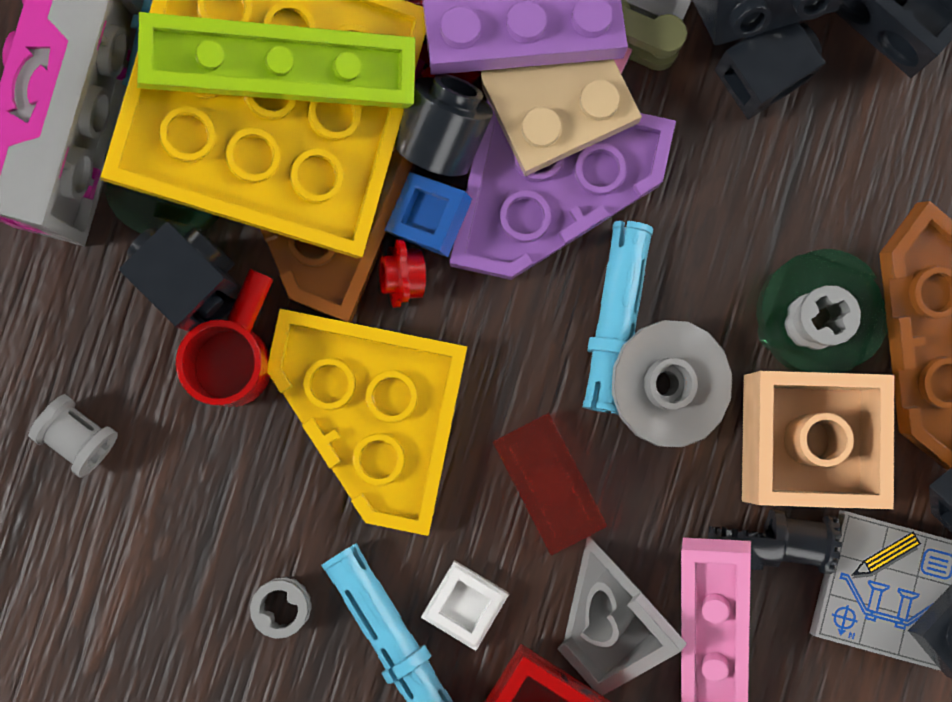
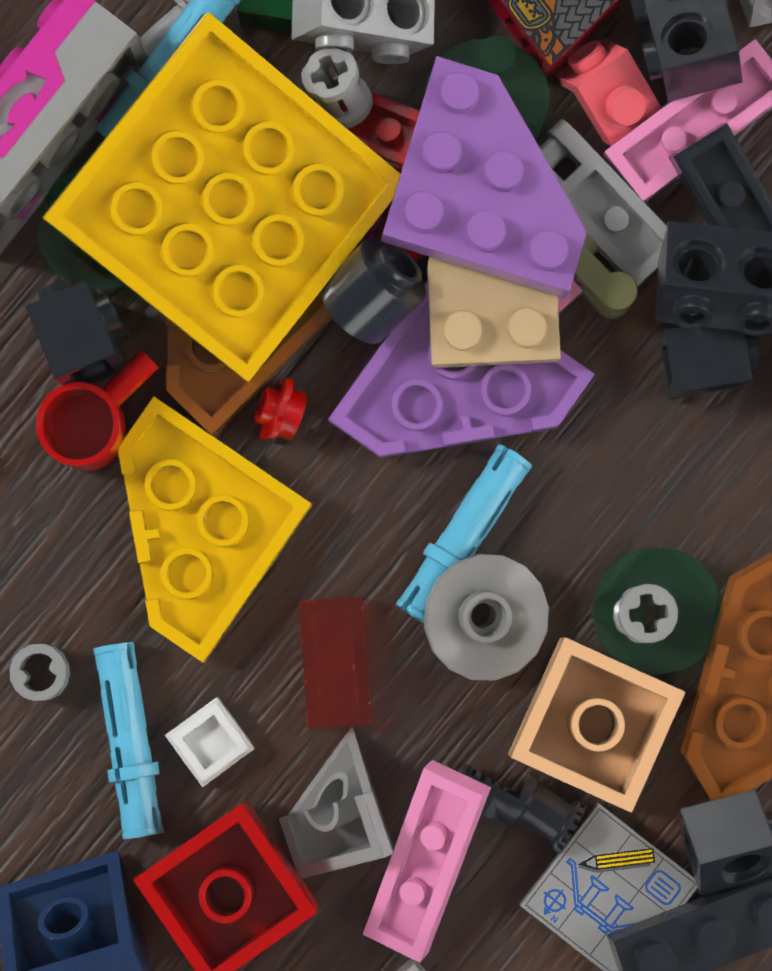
camera: 25 degrees right, 0 degrees up
(274, 61) = (243, 178): lime plate -> none
(428, 214) = (327, 366): blue tile -> none

